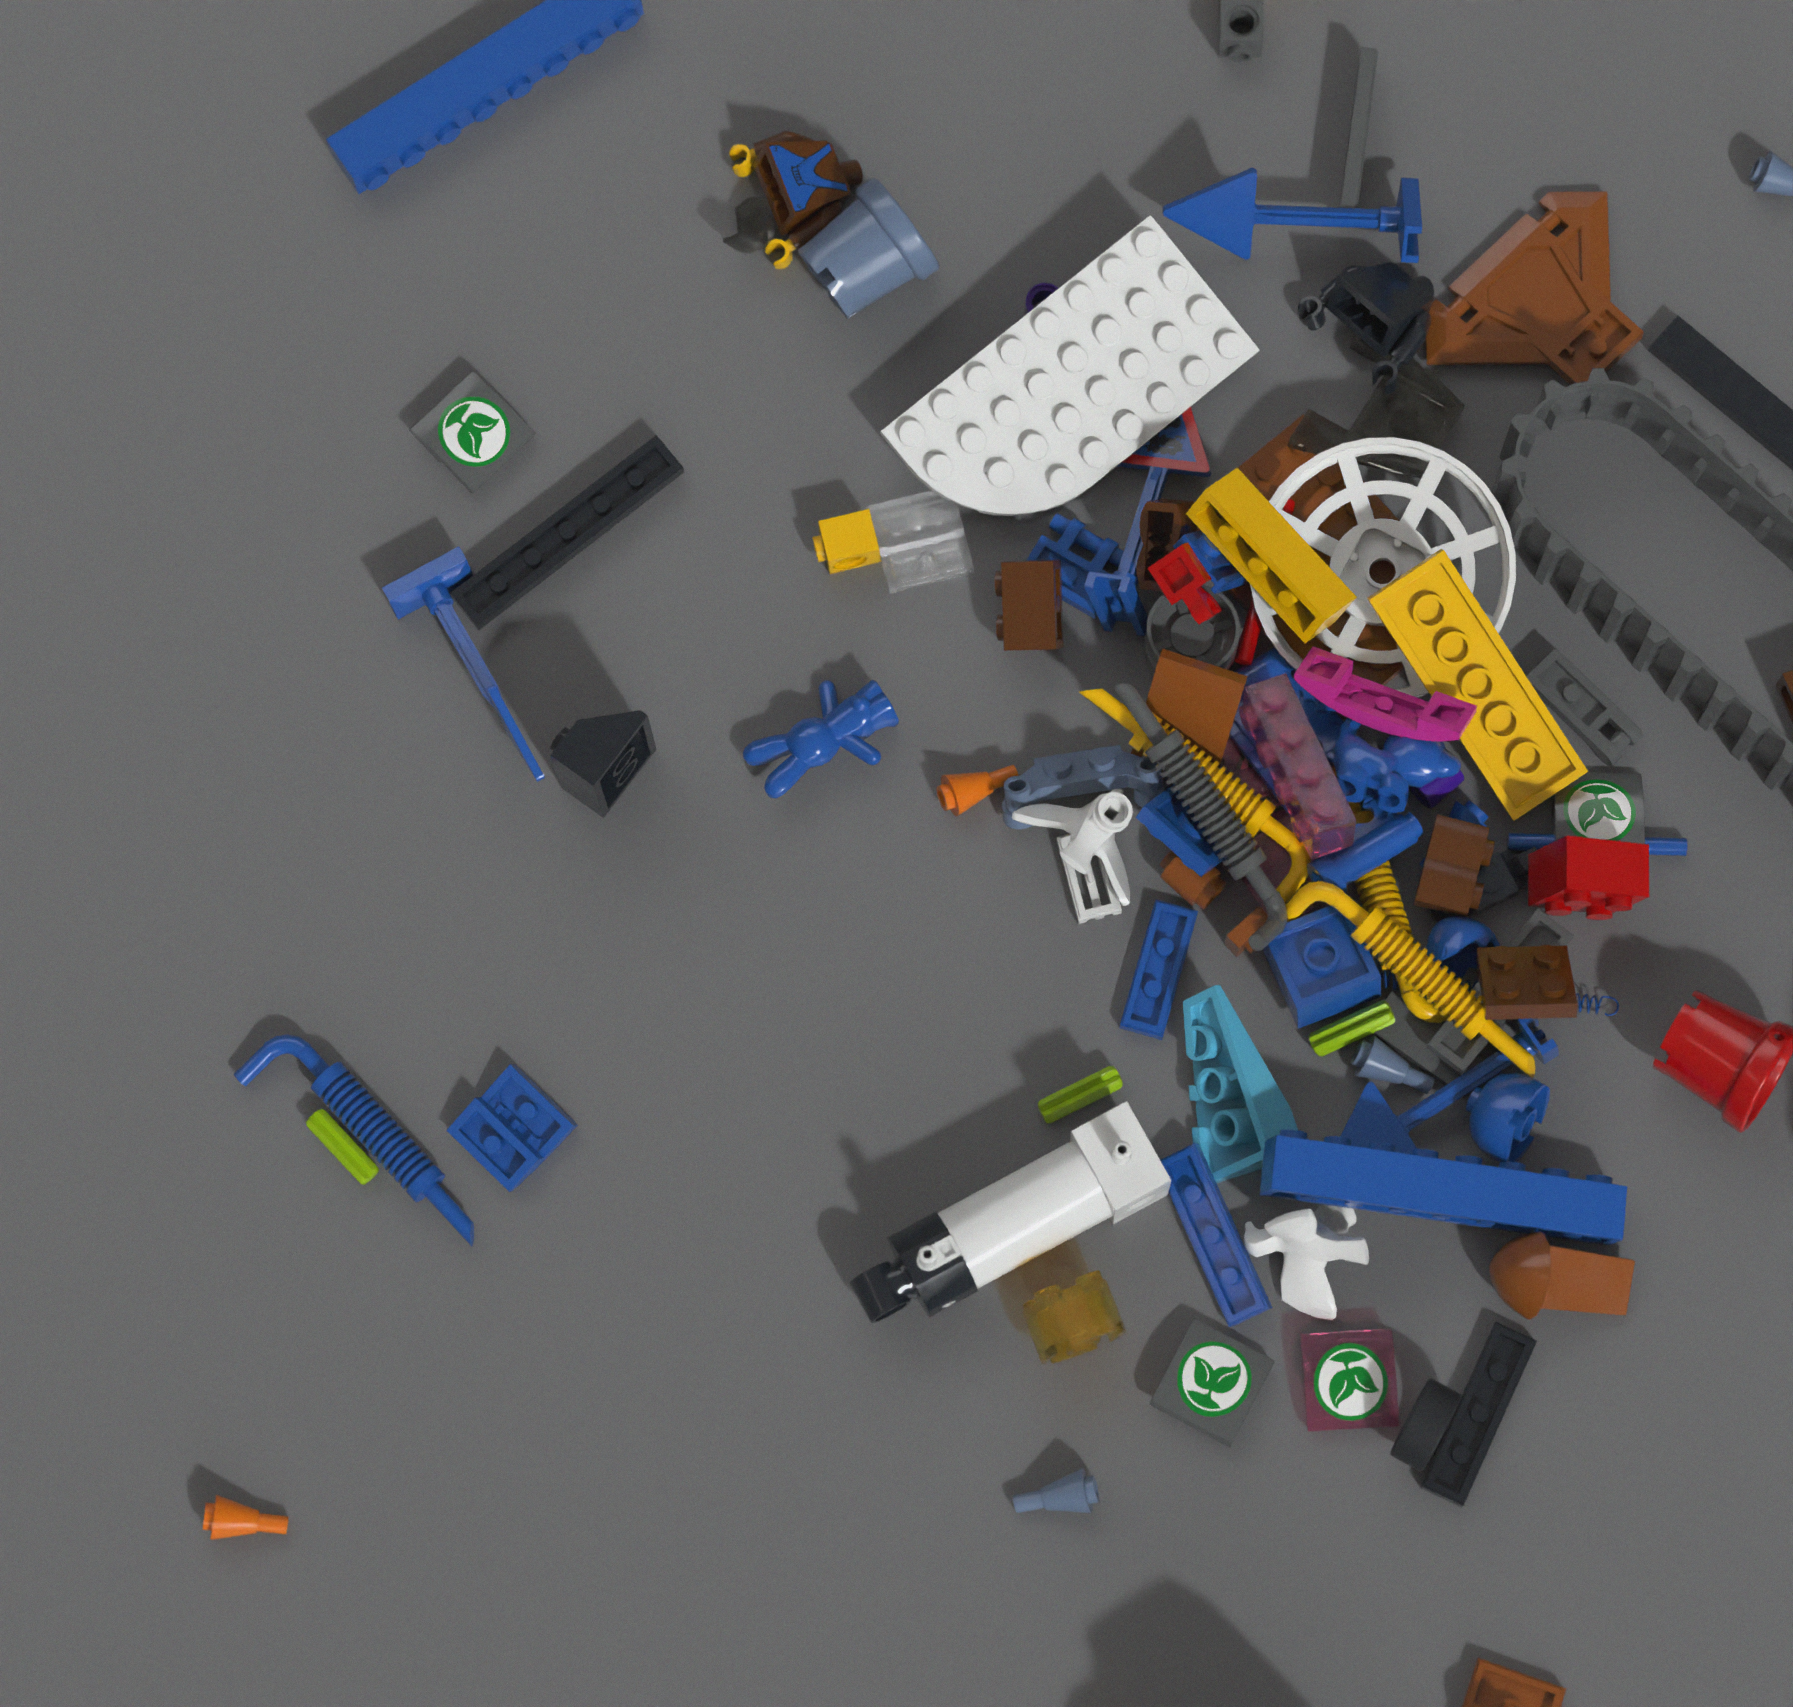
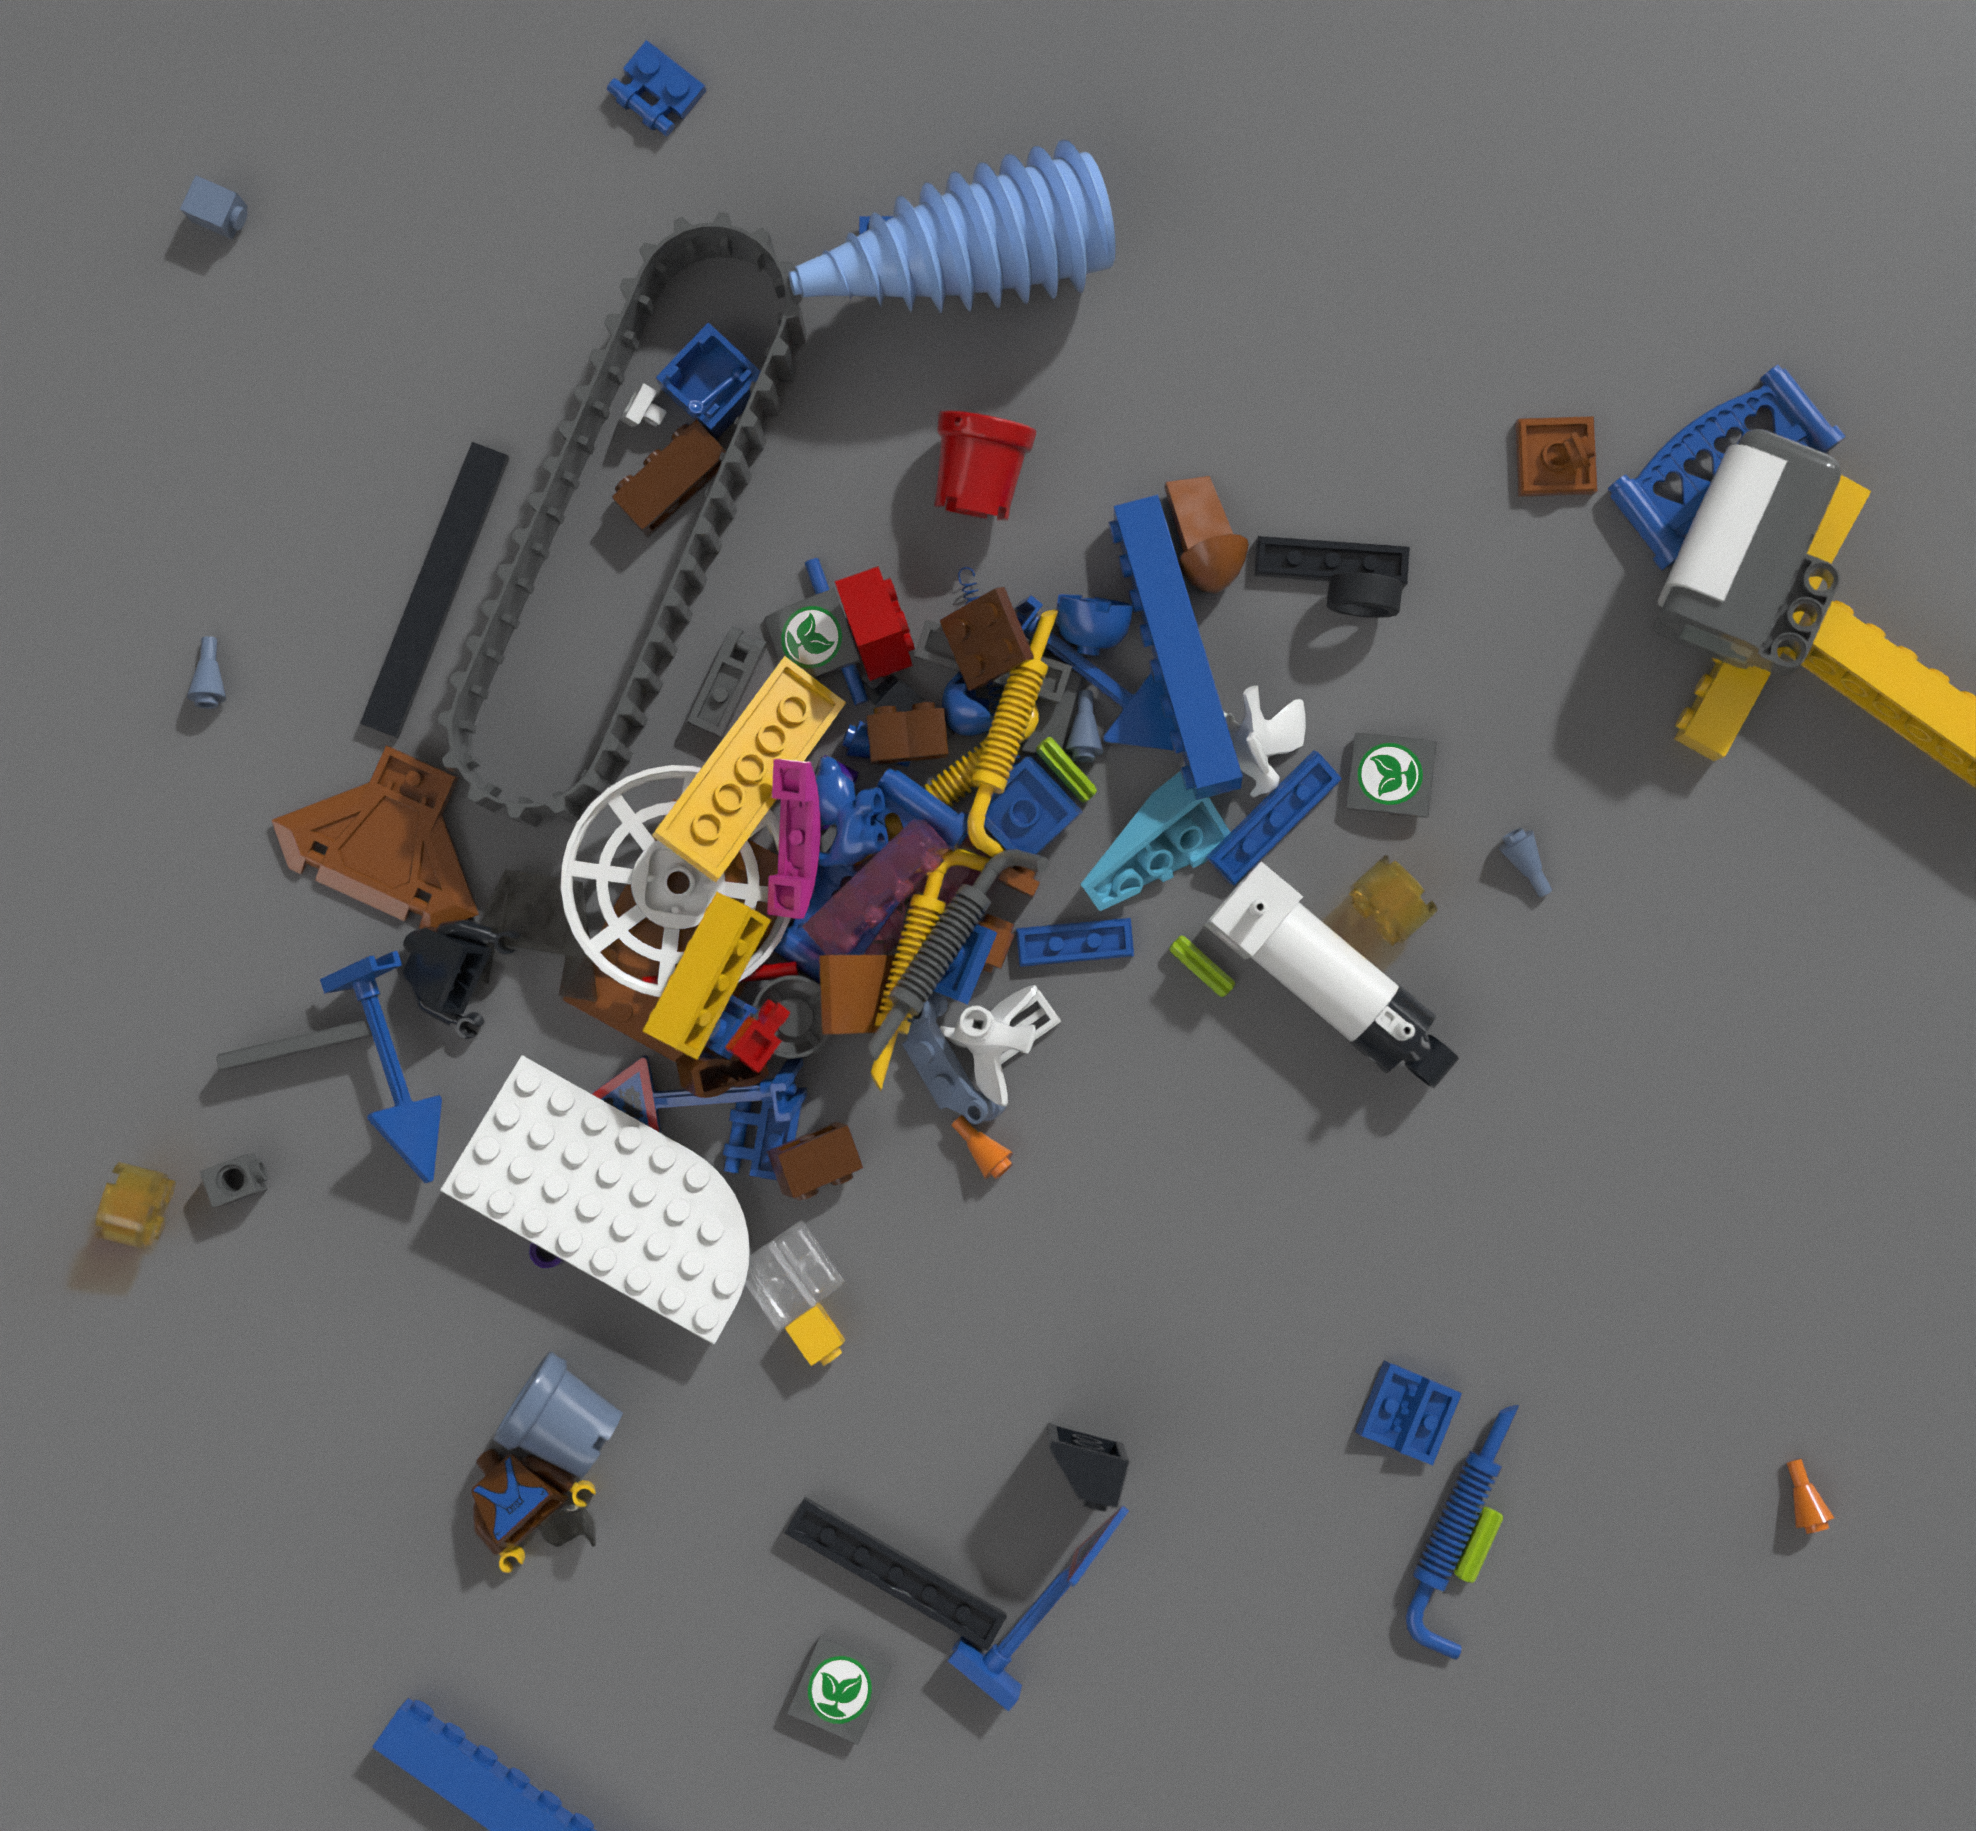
camera: 115 degrees left, 10 degrees up
(817, 740) = (994, 1291): blue animal -> none
(1349, 1380) = (1346, 669): slope -> none

